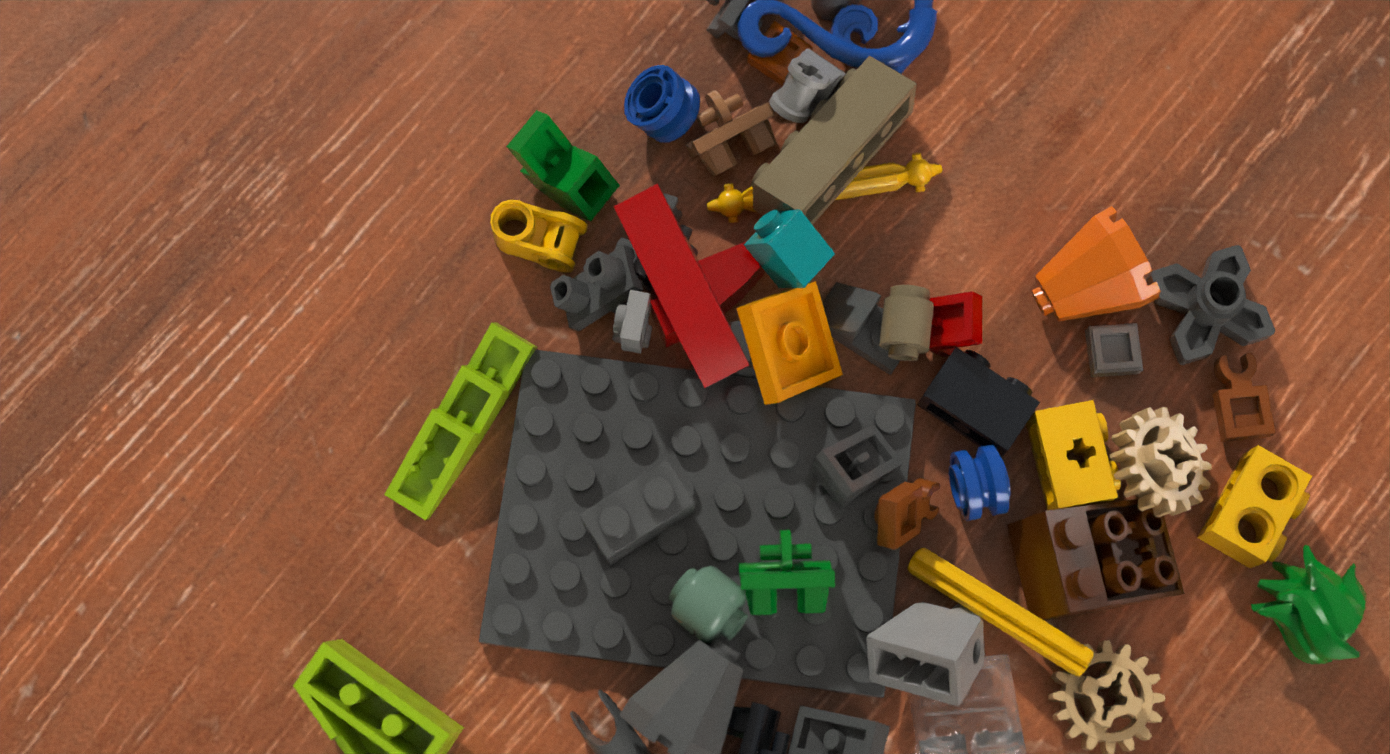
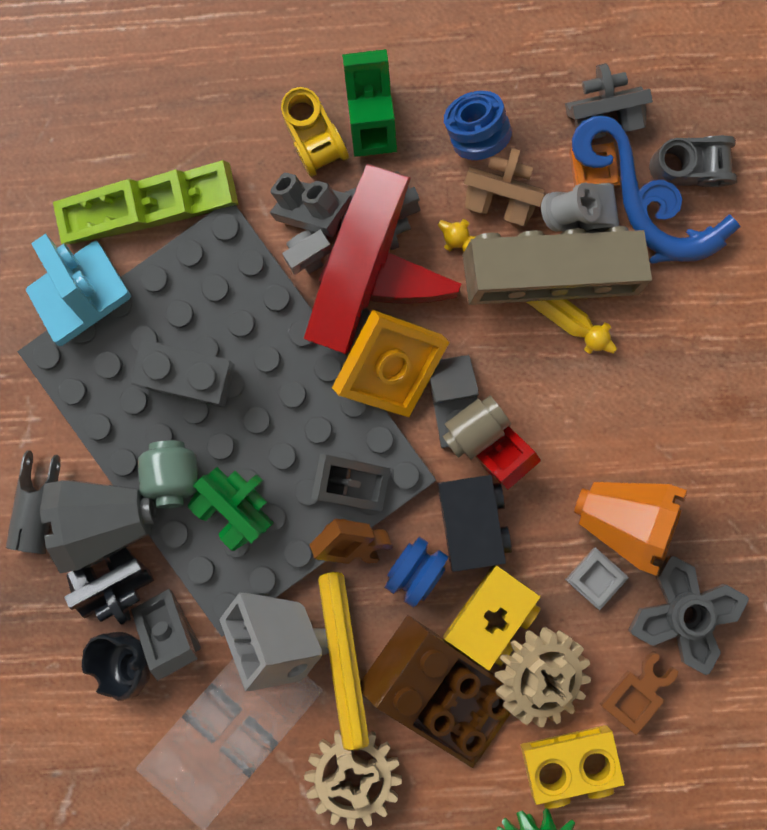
camera: 50 degrees right, 10 degrees up
(477, 540) = (75, 288): none -> medium azure bracket
(788, 248) = (450, 304): teal brick -> none

